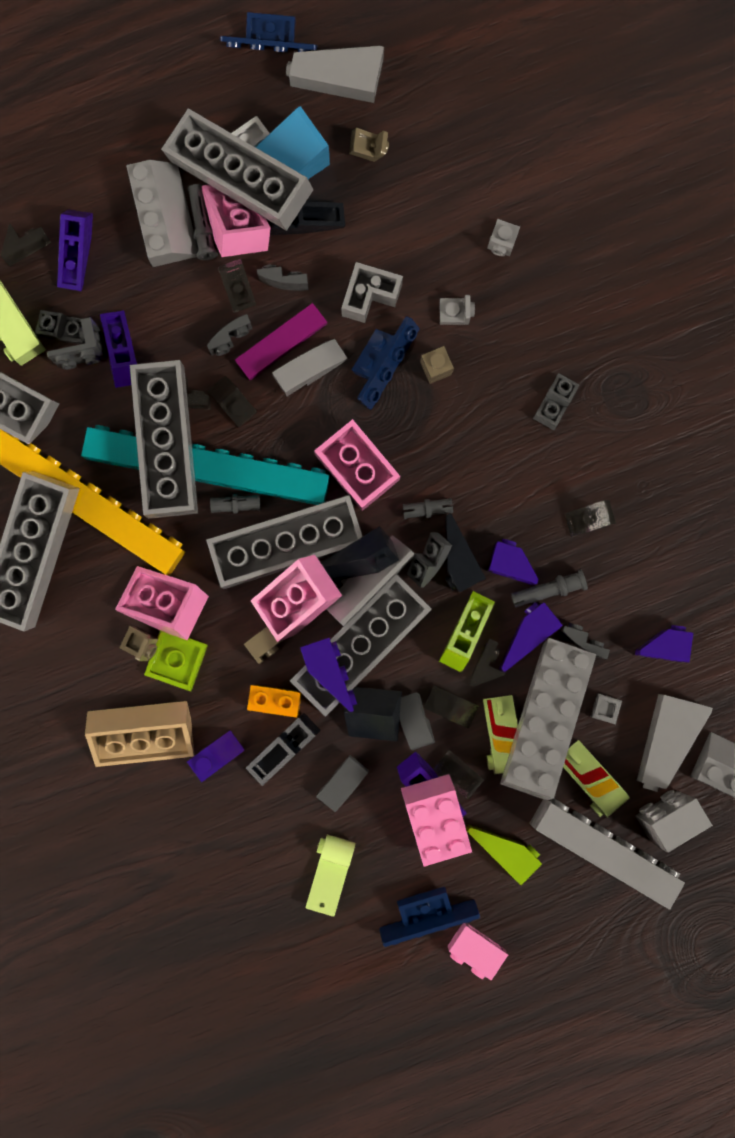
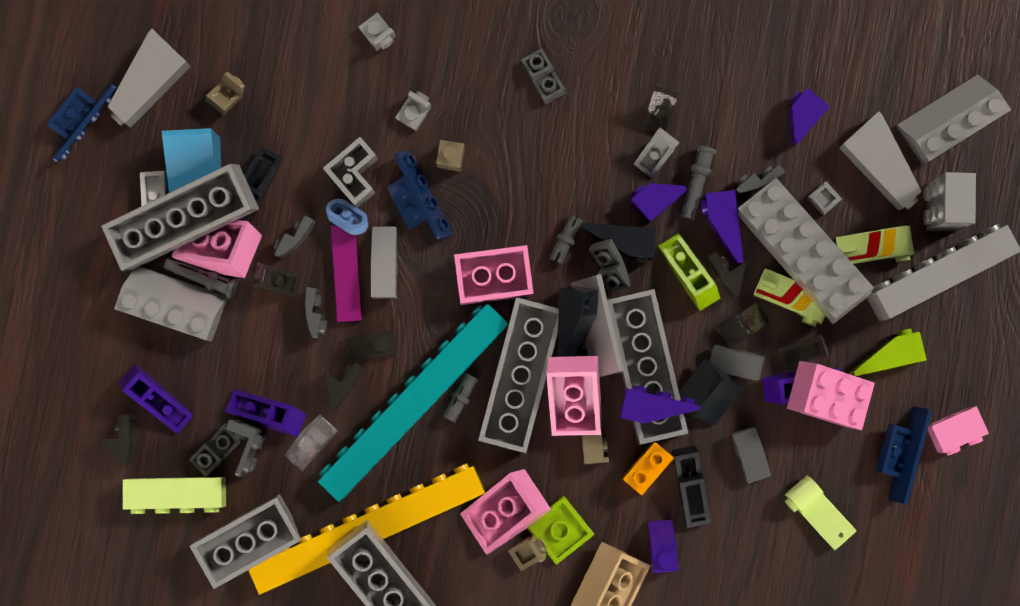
camera: 50 degrees left, 0 degrees up
(113, 401) = (310, 442): none -> clear slope
(163, 439) = (372, 422): light grey brick -> none
(328, 310) = (349, 218): none -> medium blue plate
(551, 538) = (656, 153): none -> light grey slope

